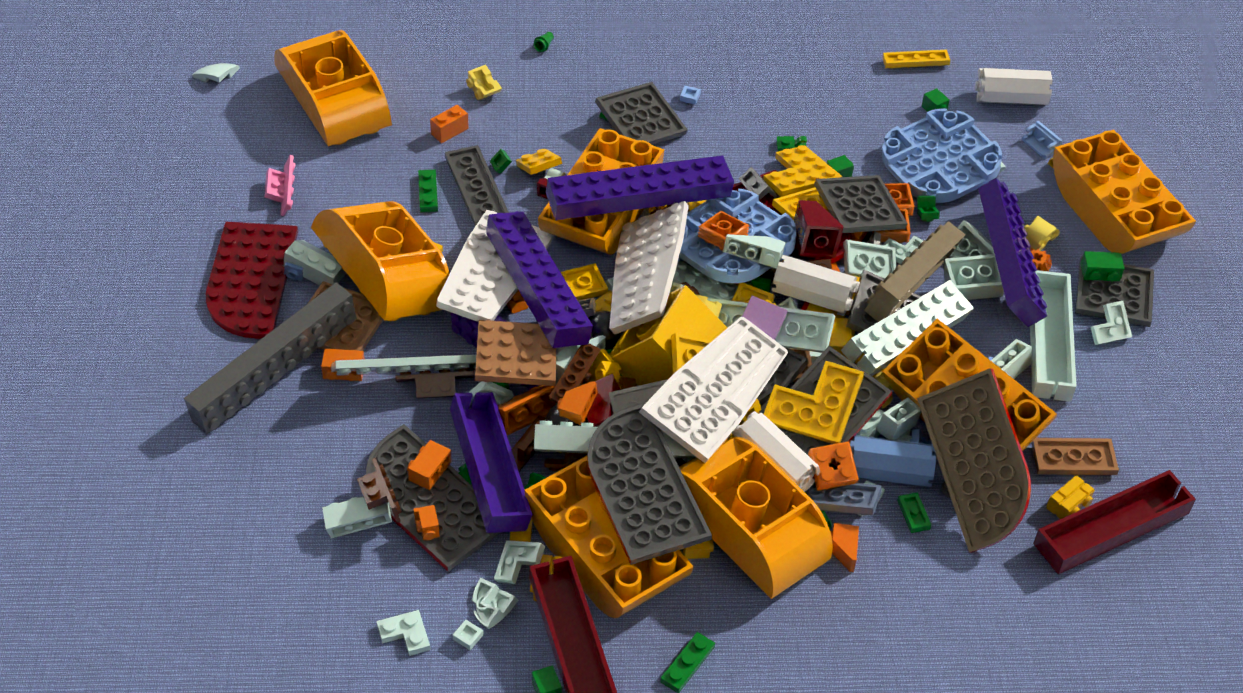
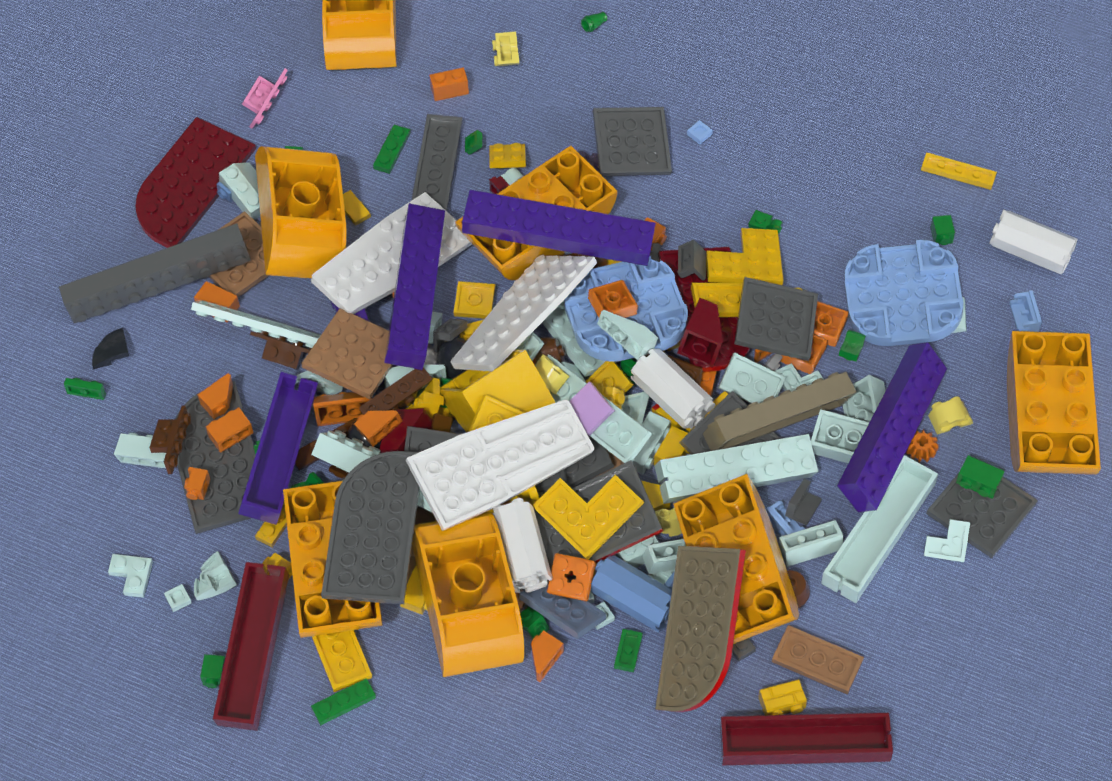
camera: 30 degrees right, 10 degrees up
(256, 484) = (84, 388): none -> green plate
(259, 441) = (110, 348): none -> black brick
(399, 442) = (217, 396): none -> orange slope
(513, 556) = (253, 544): light aqua plate -> none
(662, 624) = (342, 659): none -> yellow plate
(842, 166) = (794, 269): green brick -> none
(976, 339) = (803, 504): none -> dark grey panel

